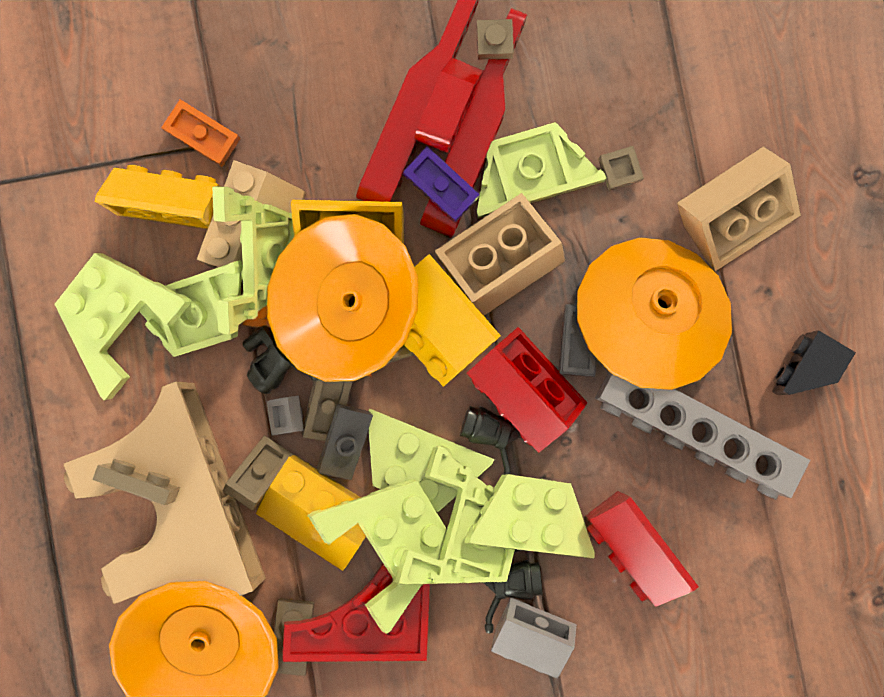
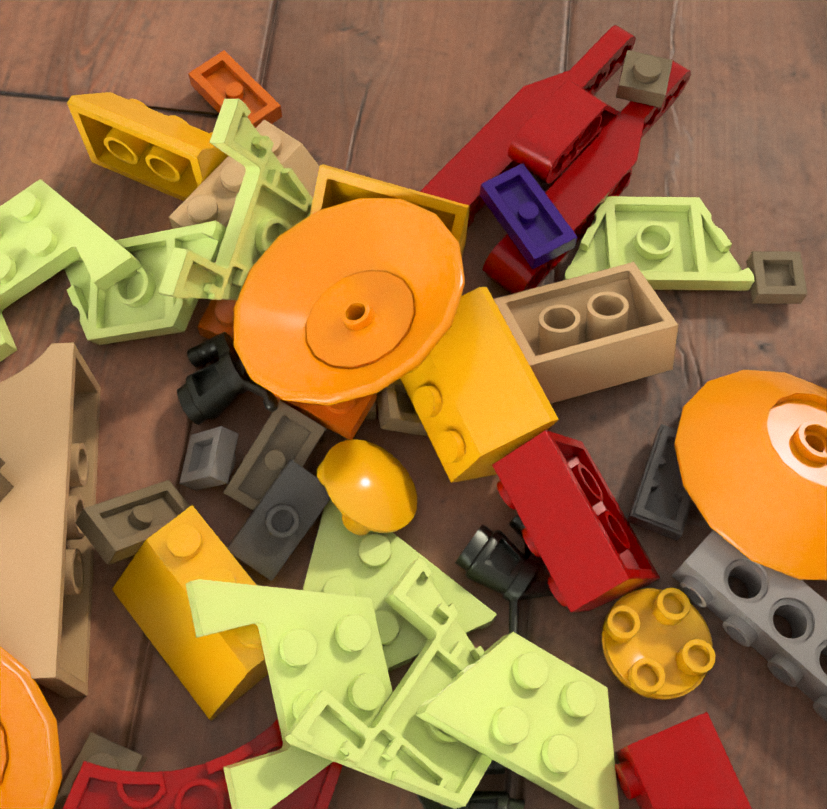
camera: 15 degrees right, 20 degrees down
(392, 404) = (368, 487): none -> yellow dish
(595, 447) = (657, 643): none -> yellow dish

